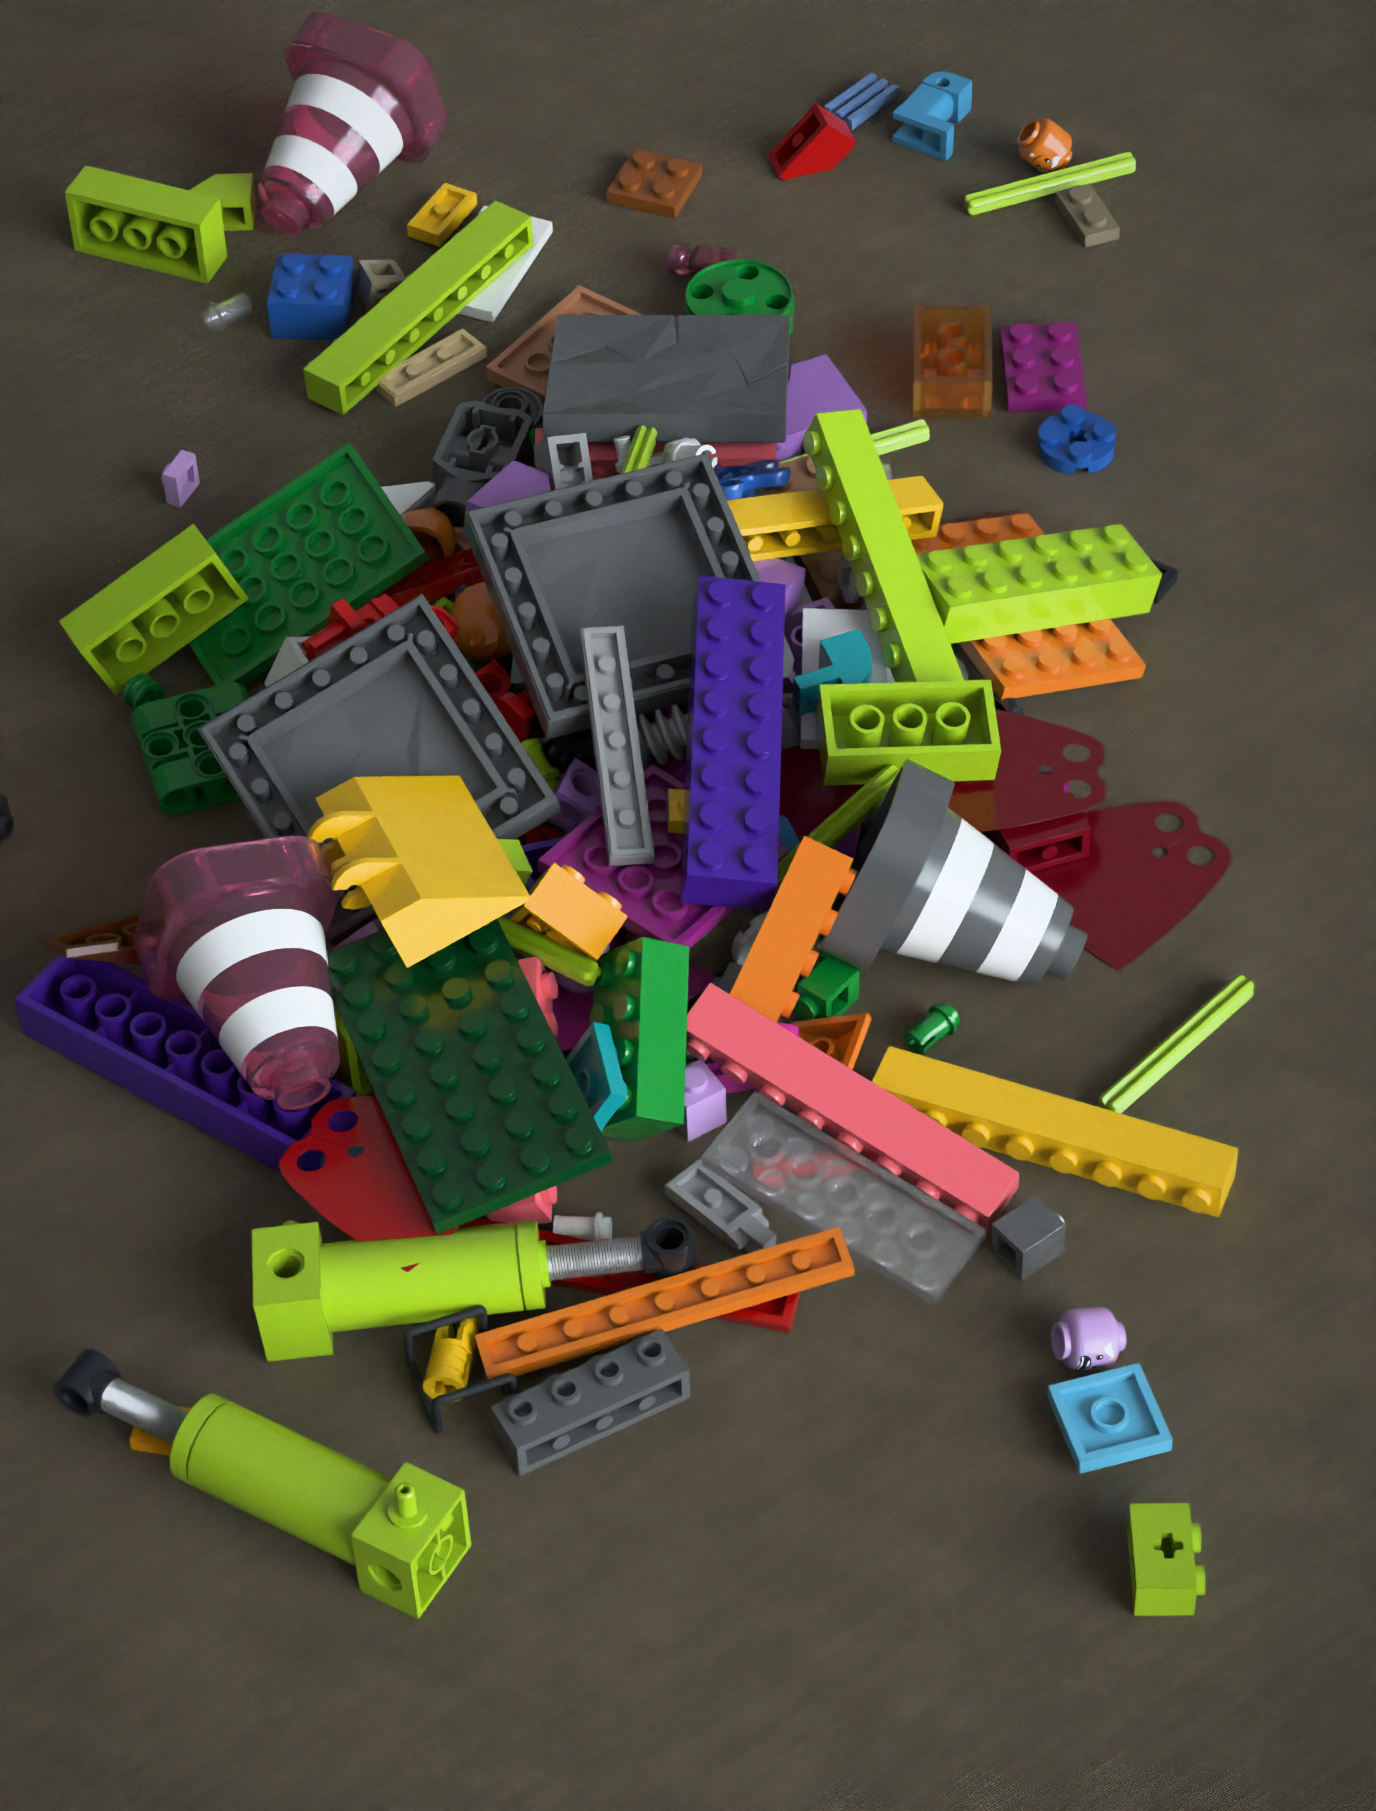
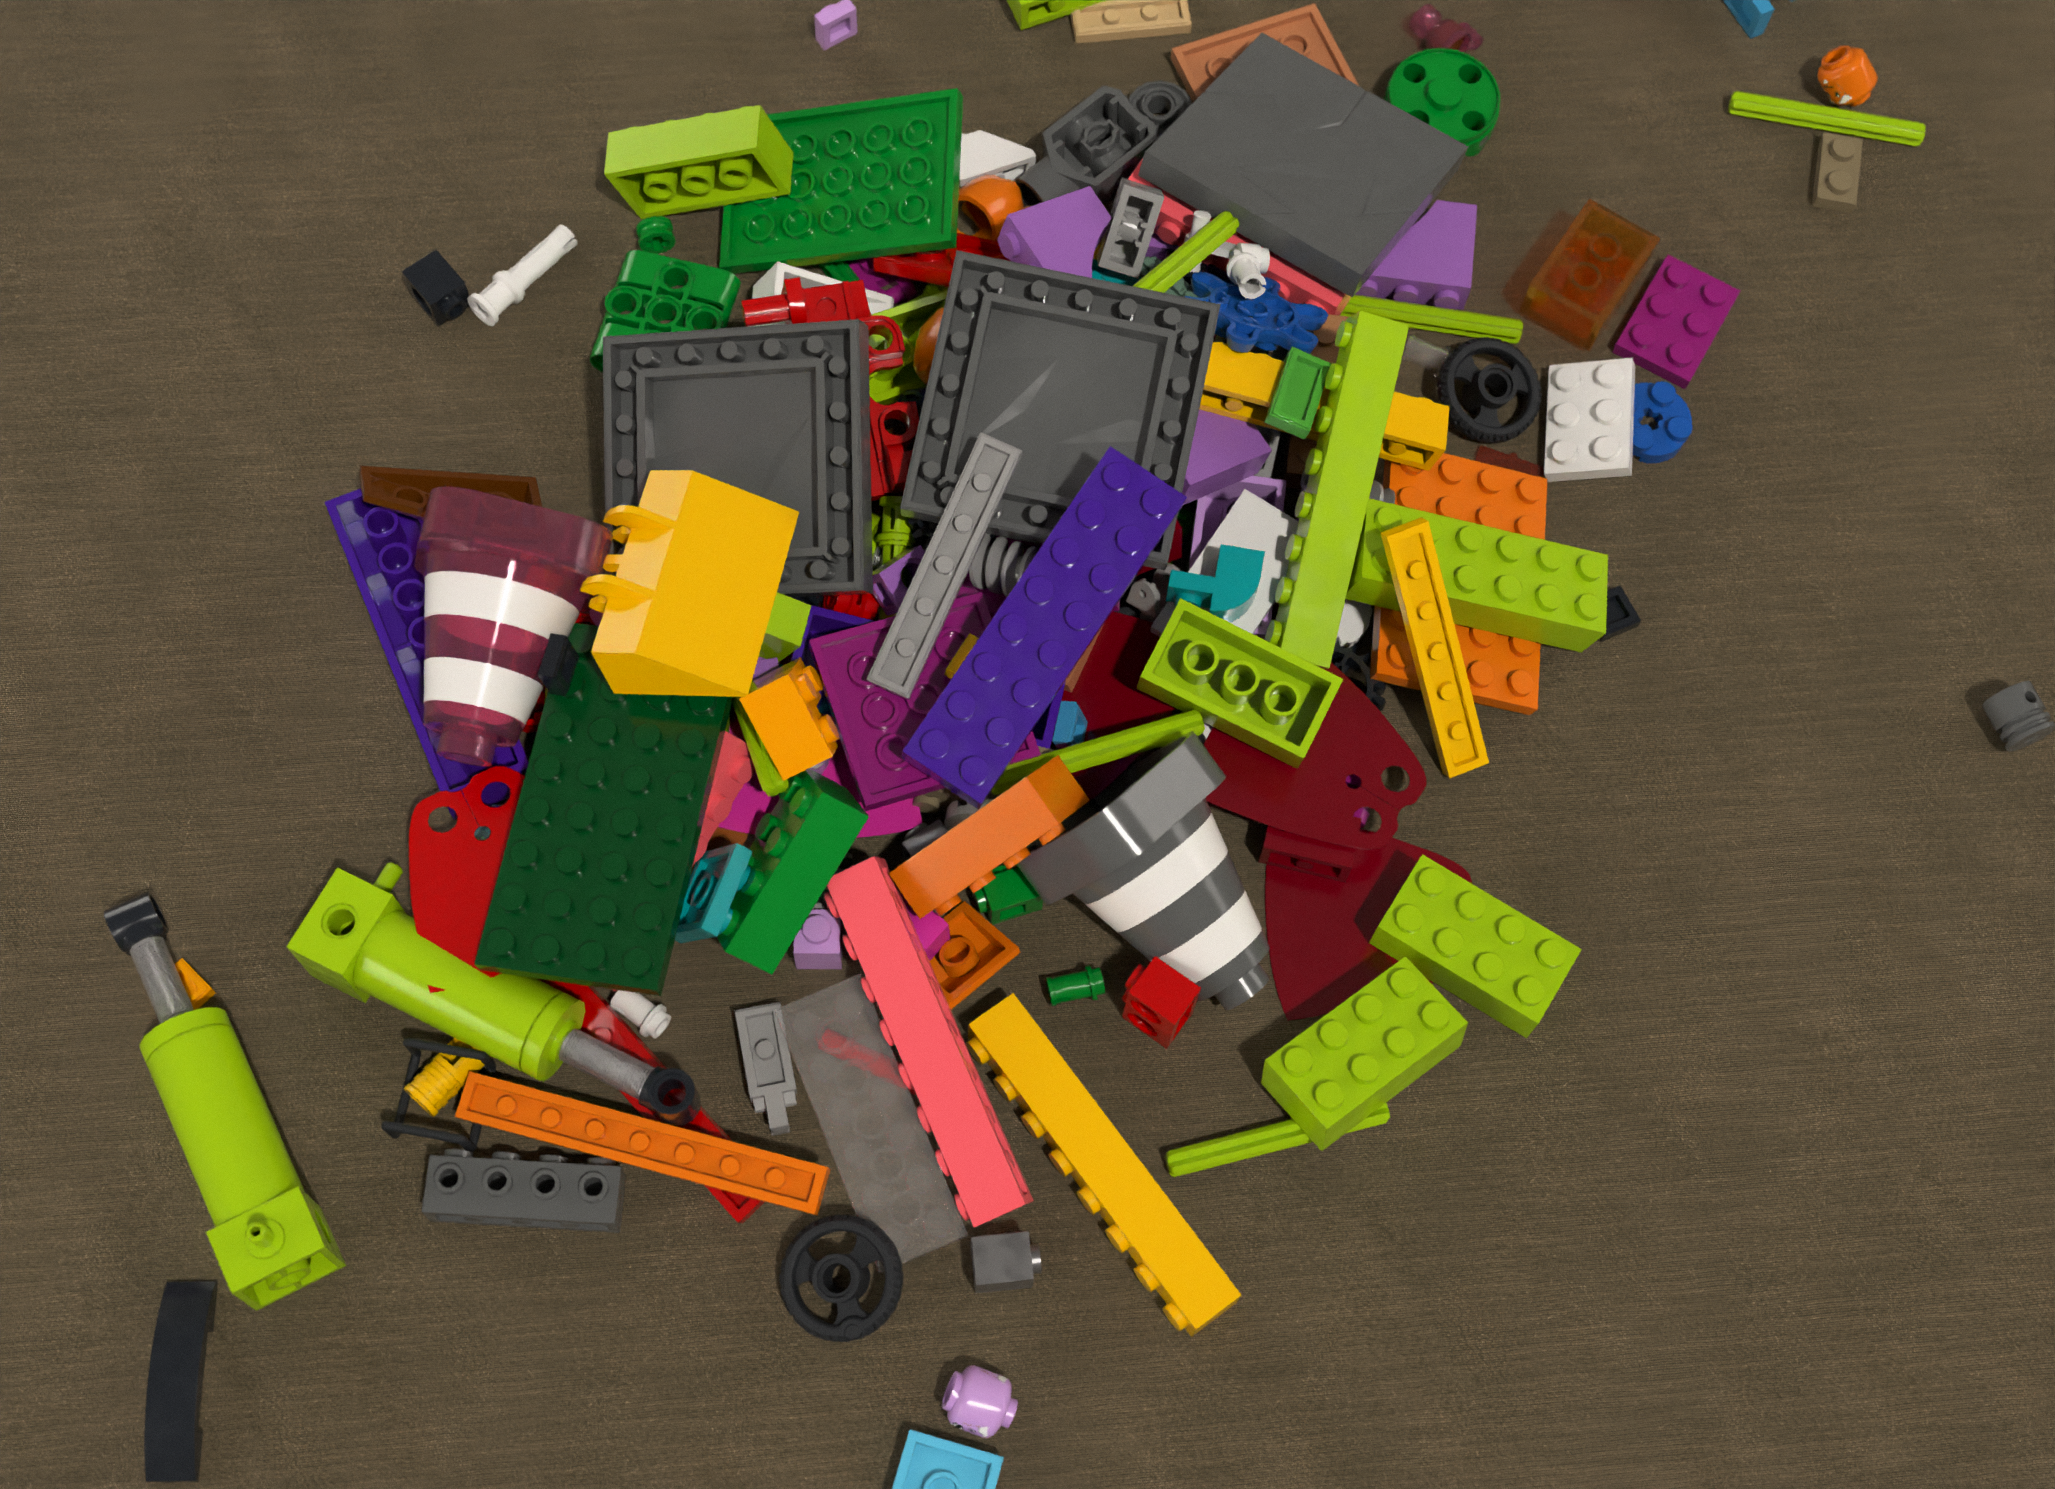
camera: 25 degrees right, 20 degrees up
(42, 787) = (510, 285): none -> white pin
(342, 973) = (558, 665): none -> black tile
(398, 1699) = (176, 1382): none -> black slope
(802, 507) = (1297, 393): none -> bright green tile
(915, 1275) = (800, 1266): none -> black wheel
(939, 467) = (1477, 400): none -> black wheel
(1013, 991) = (1159, 1001): none -> red brick
(1030, 457) = (1590, 420): none -> white plate
(1042, 637) = (1435, 647): none -> yellow plate
(1200, 944) = (1363, 1053): none -> lime brick
(1227, 836) = (1475, 946): none -> lime brick

